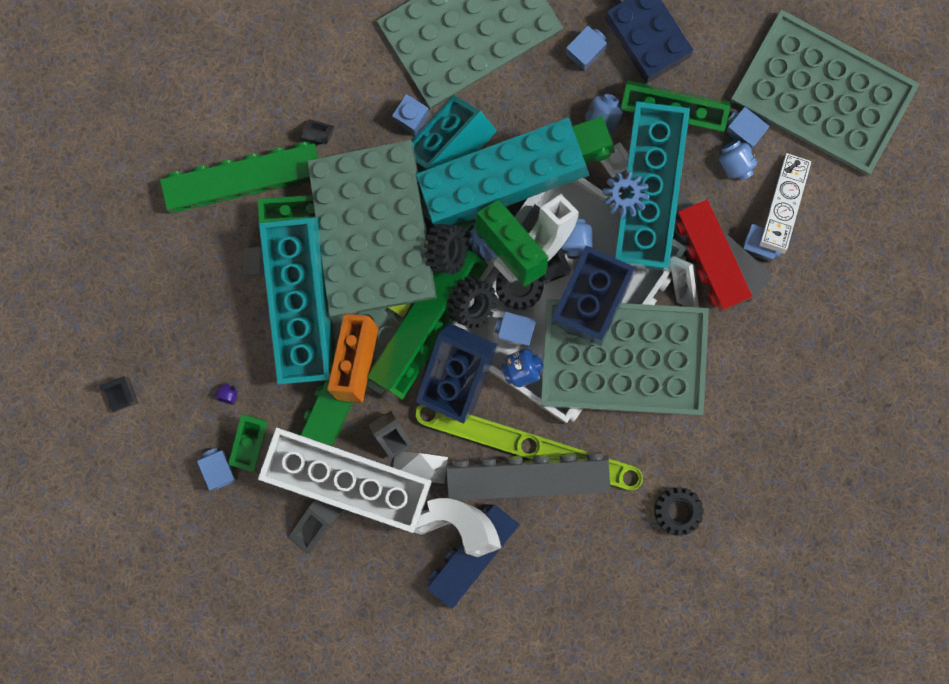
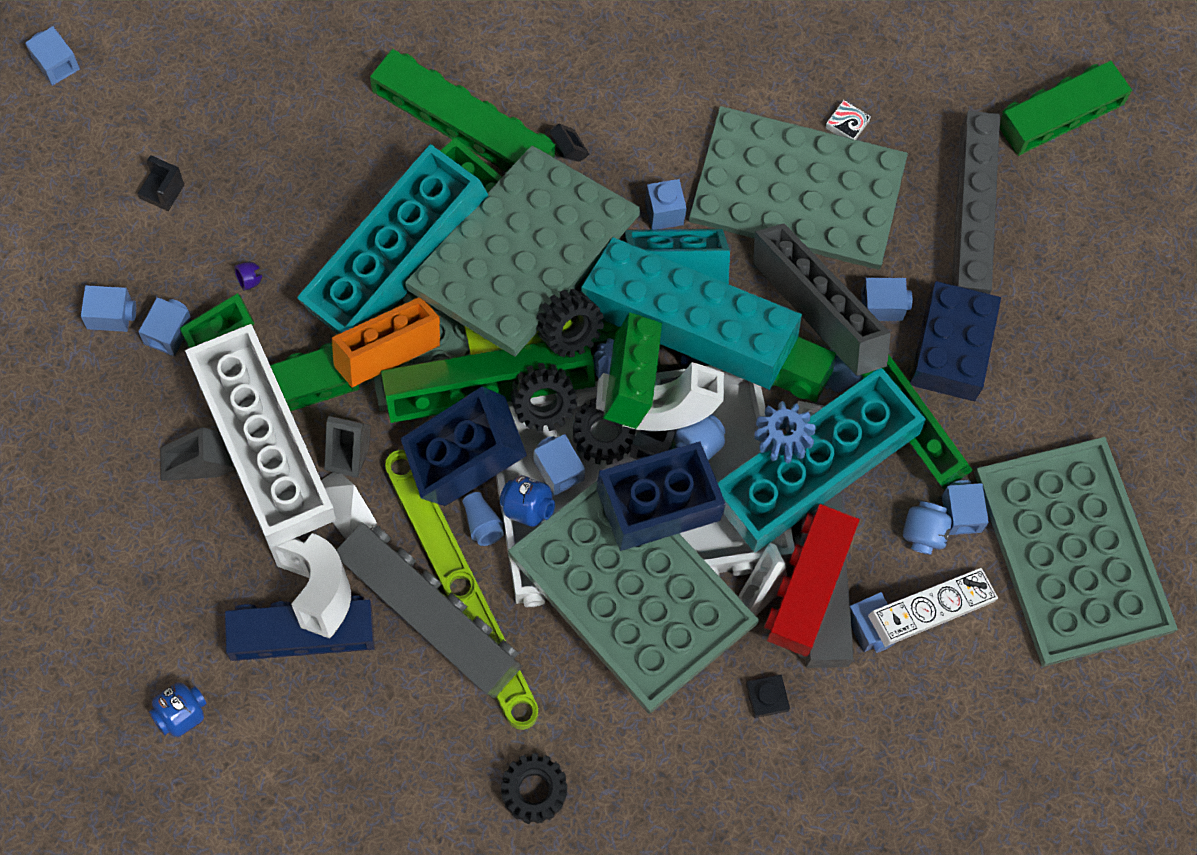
camera: 35 degrees right, 15 degrees down
(174, 493) = (107, 308): none -> medium blue brick
(457, 661) = (177, 709): none -> blue head
(502, 398) = (482, 520): none -> medium blue cone
(561, 90) = (821, 299): none -> dark grey brick
(745, 338) = (767, 696): none -> black plate

